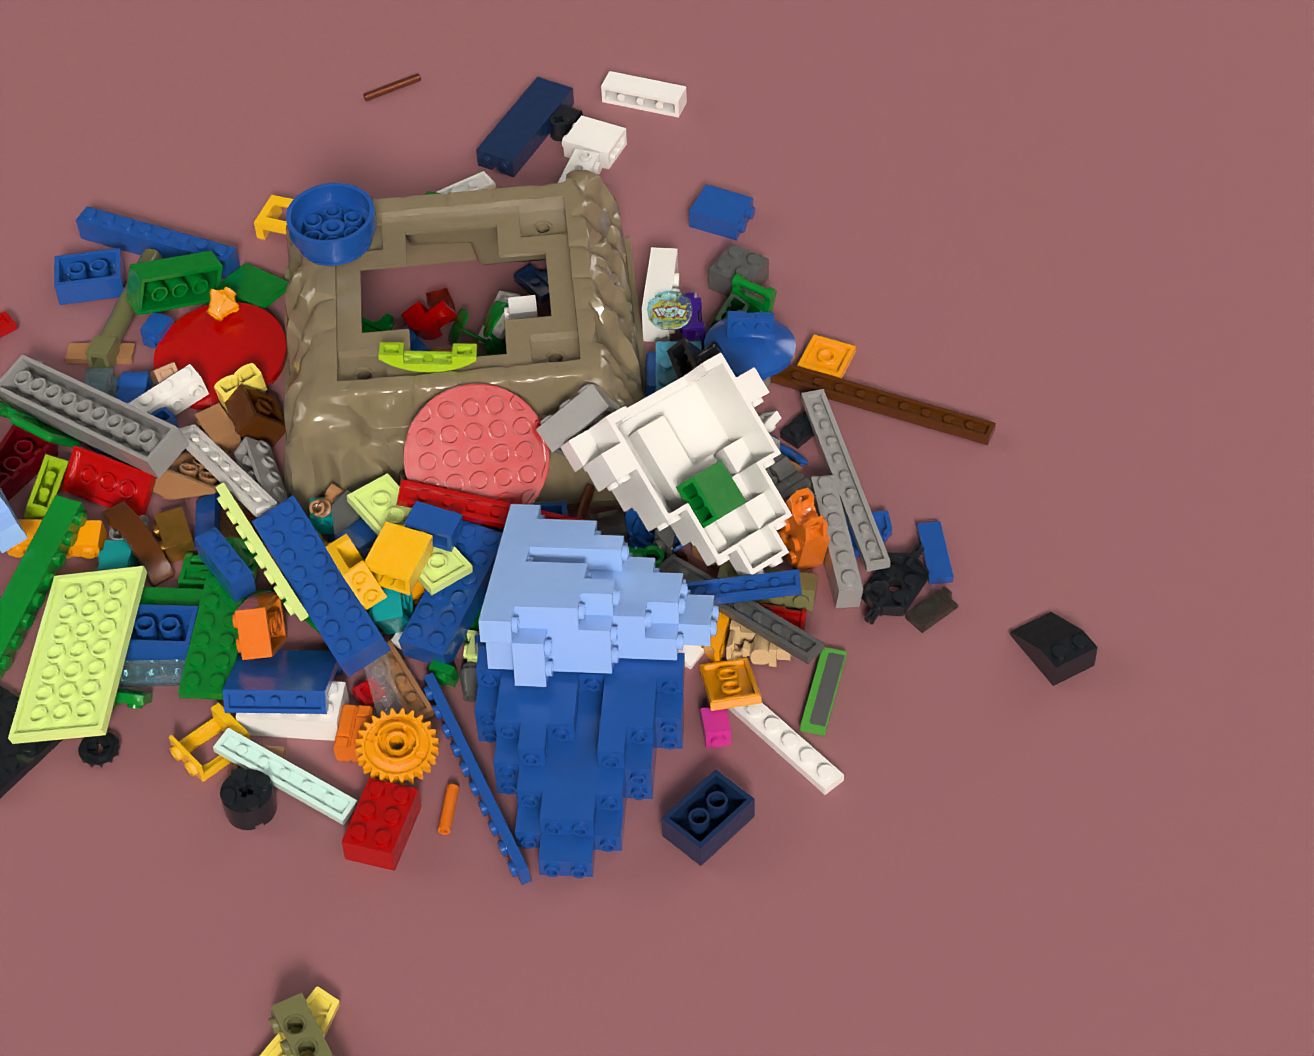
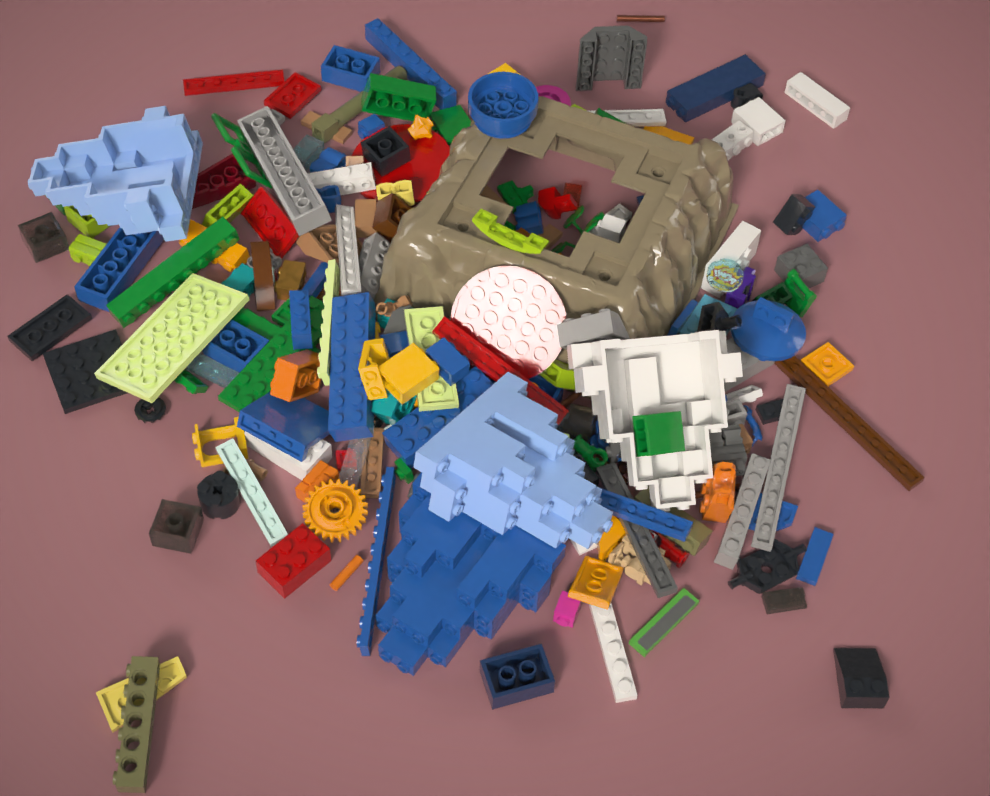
camera: 25 degrees right, 5 degrees up
(36, 334) = (292, 95): none -> red plate
(197, 344) = (386, 151): none -> black brick
(221, 853) = (176, 526): none -> clear smoke brick
(396, 134) = (609, 55): none -> dark grey slope
(560, 490) = (559, 375): none -> lime slope
(698, 220) = (794, 214): none -> black brick

